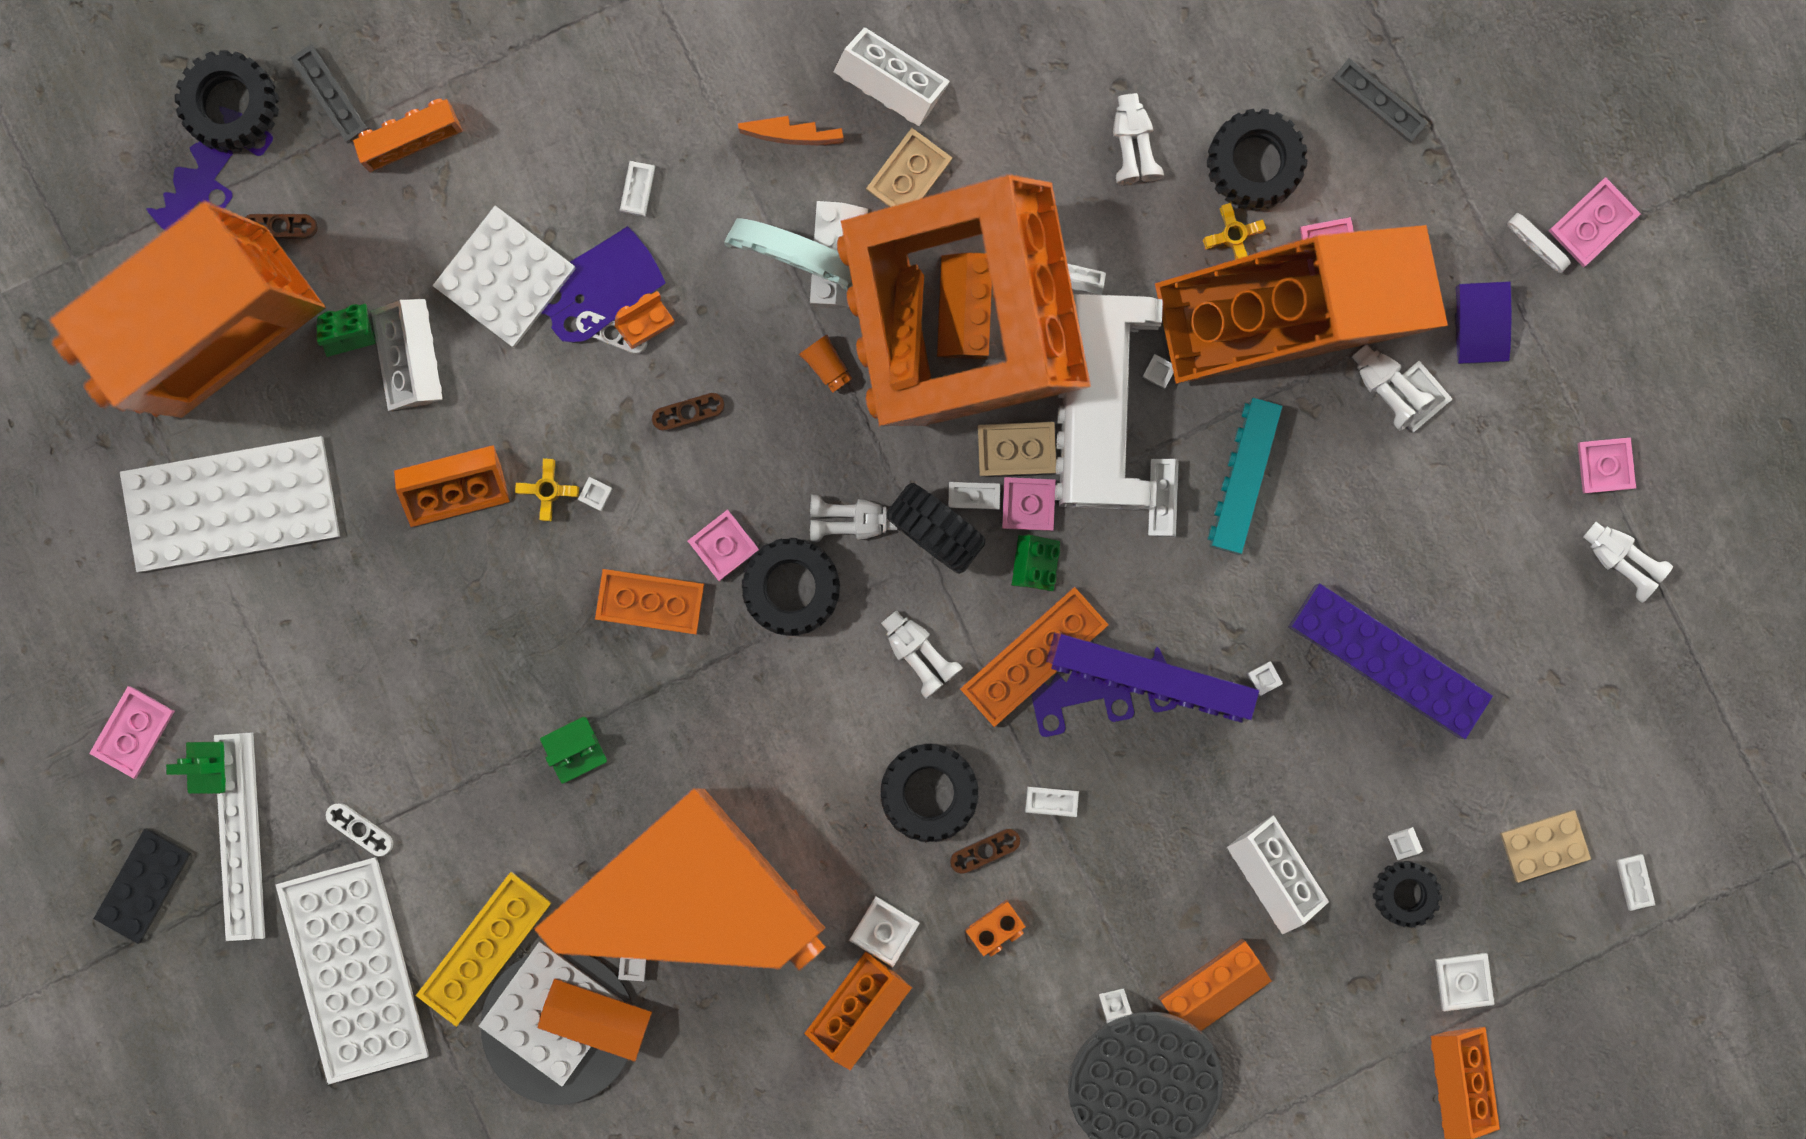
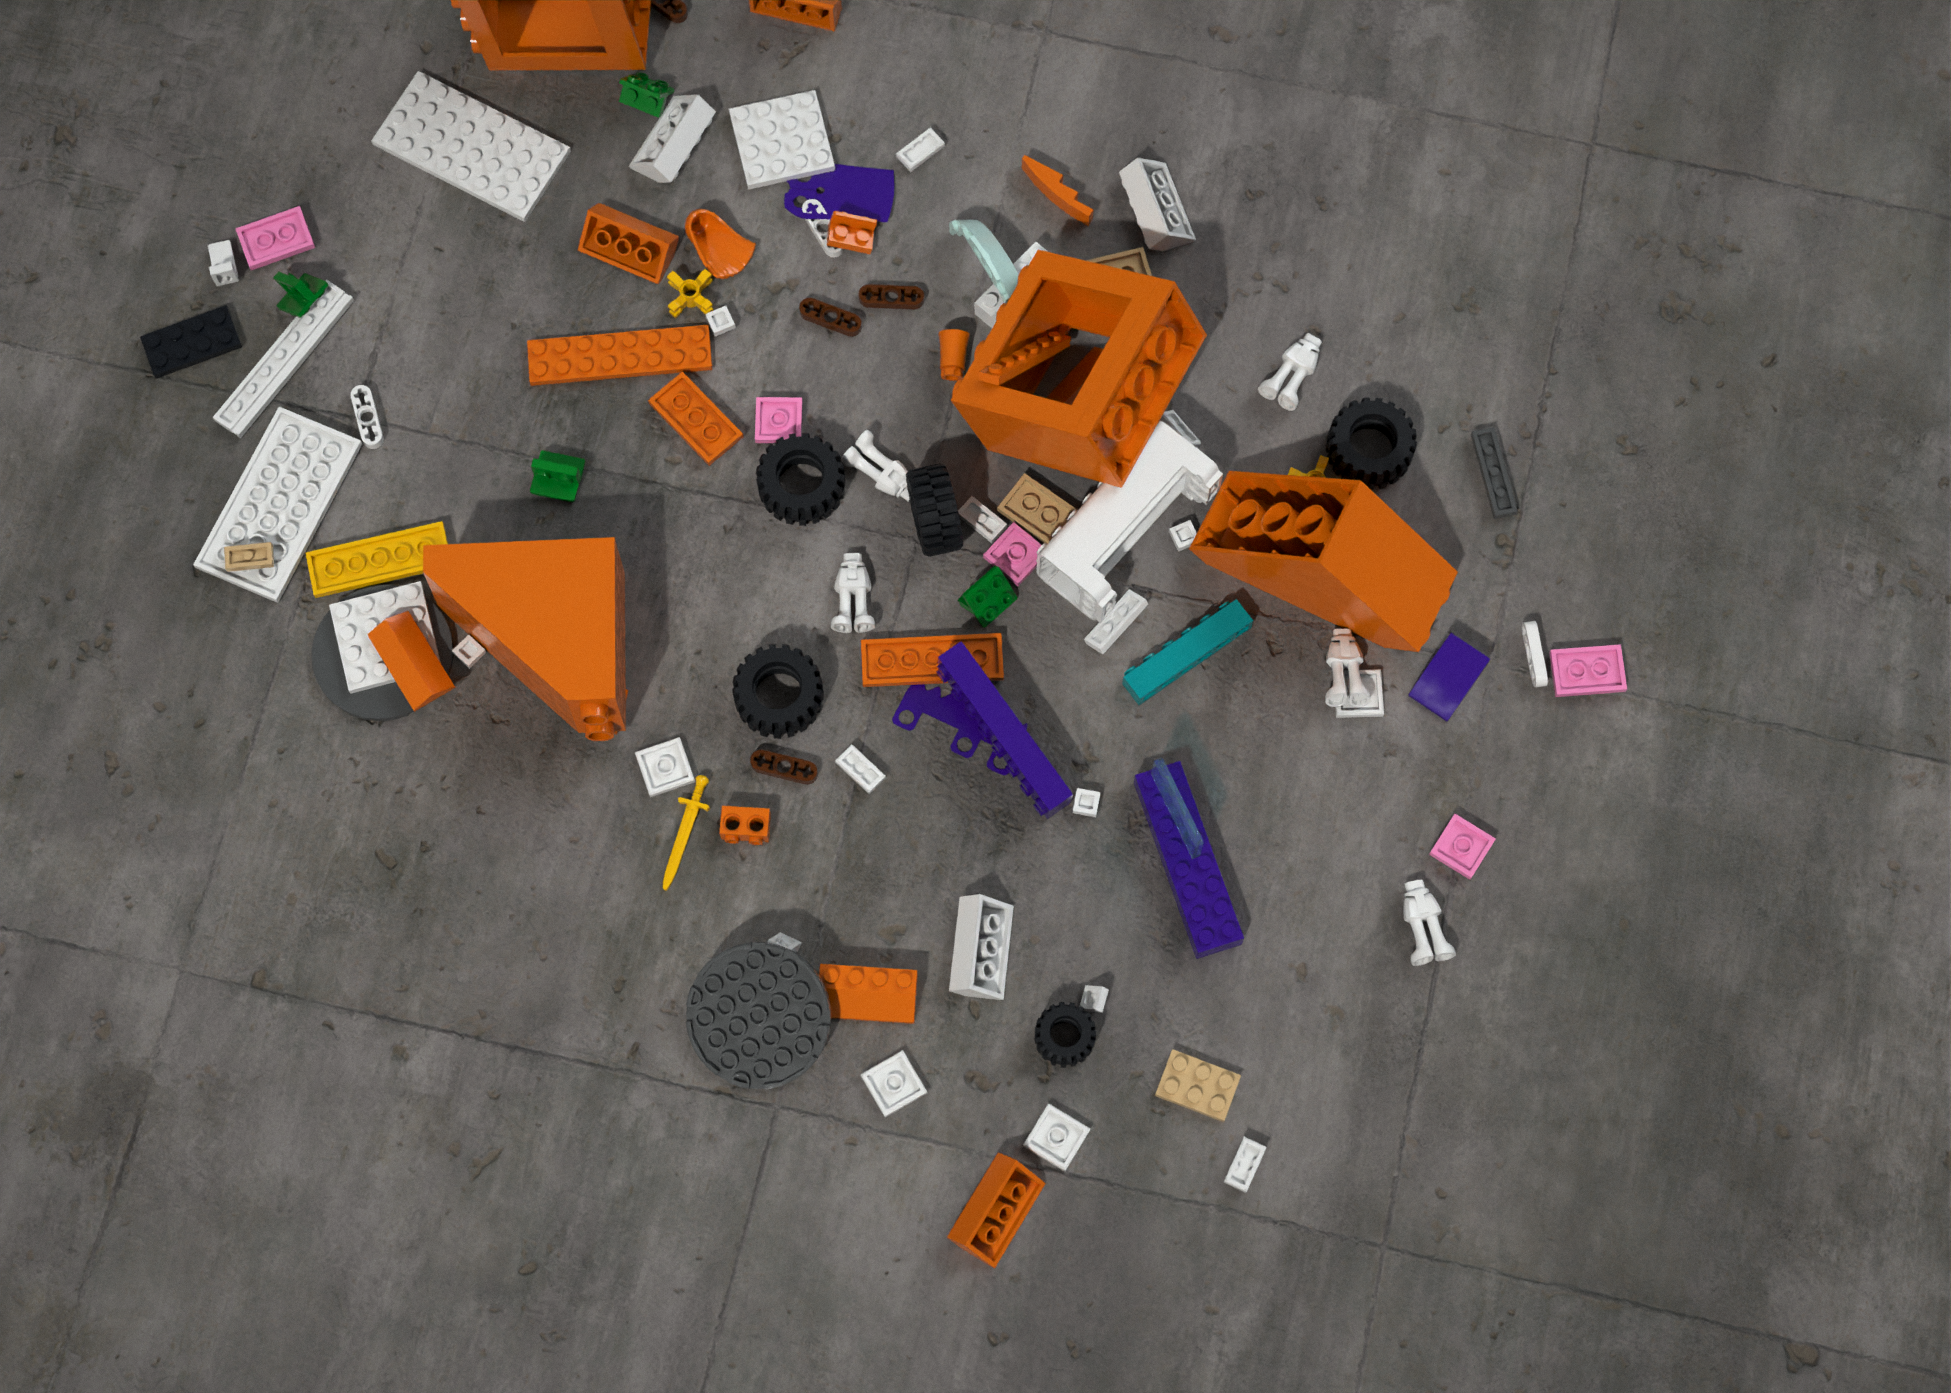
camera: 40 degrees right, 15 degrees down
(105, 792) = (223, 264): none -> white bracket
(372, 1041) = (249, 556): none -> tan plate
(532, 595) = (619, 355): none -> orange plate
(533, 424) = (717, 244): none -> orange hair
(726, 360) = (897, 304): none -> reddish brown beam
(857, 1011) = (598, 805): orange slope -> none
(944, 965) = (685, 829): none -> yellow sword
(1296, 1045) = (893, 1084): none -> white tile
(1359, 634) = (1177, 808): none -> clear light blue tile

